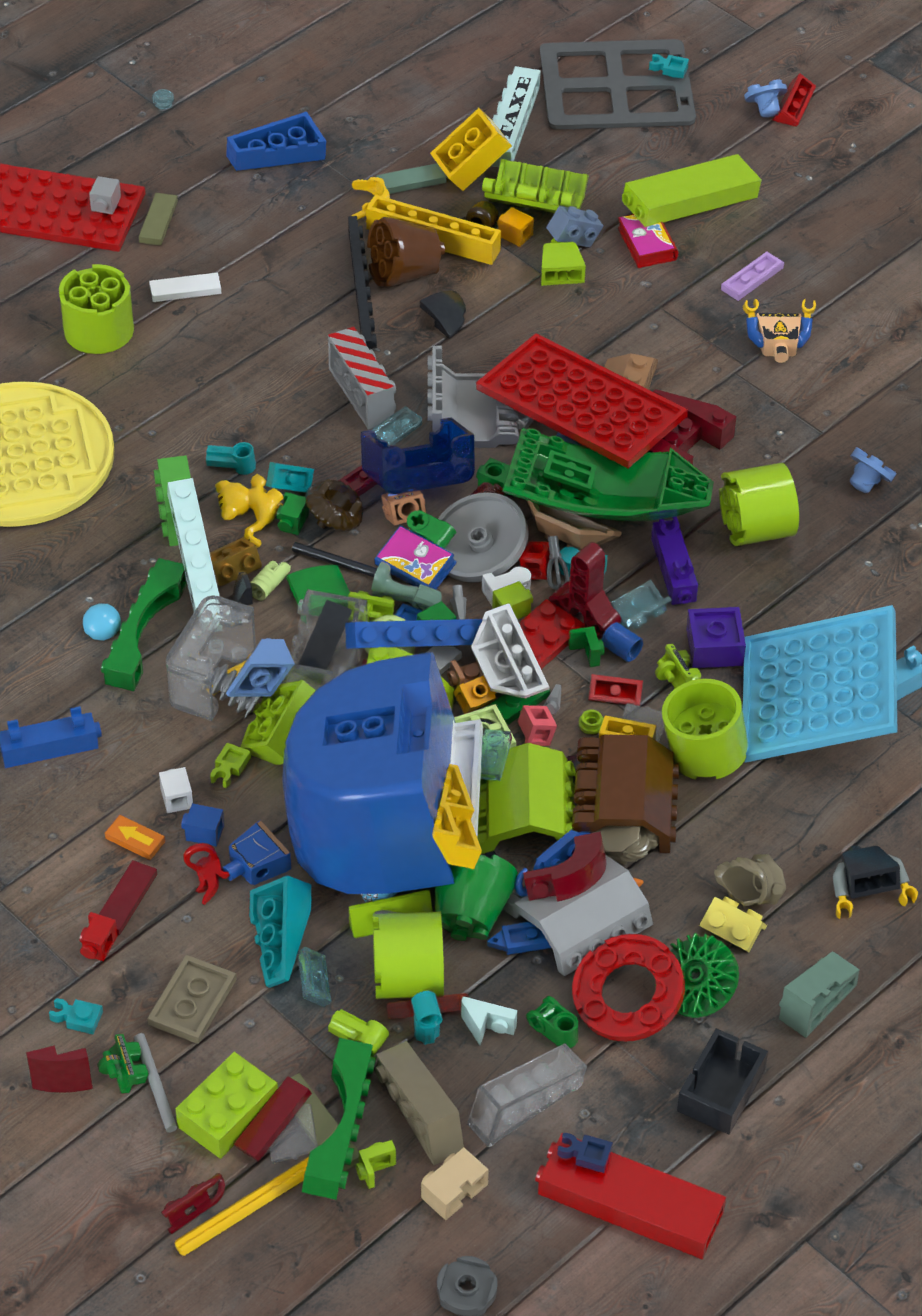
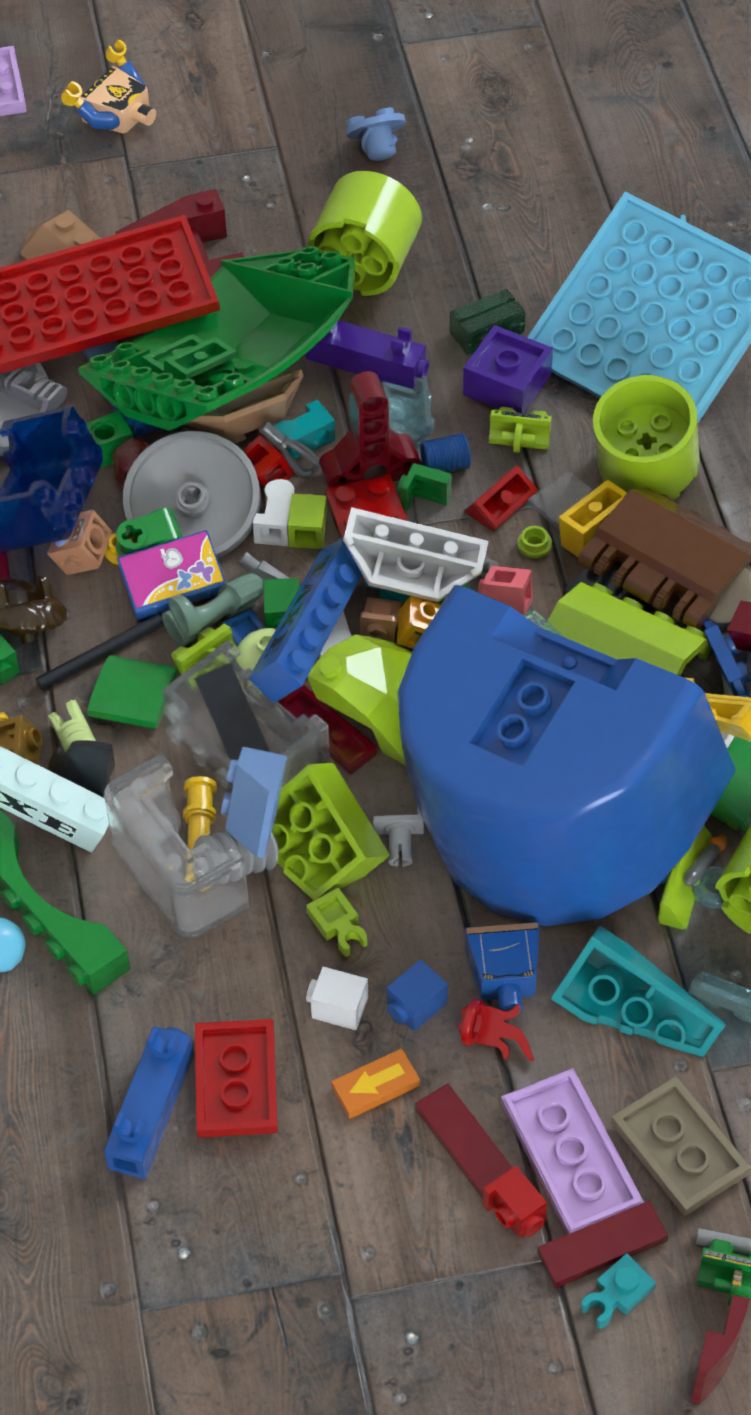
camera: 55 degrees left, 5 degrees up
(91, 770) = (235, 1078): none -> red plate
(101, 991) = (602, 1244): none -> dark red tile
(154, 951) = (570, 1151): none -> lavender tile
(757, 608) = (474, 321): none -> clear green brick

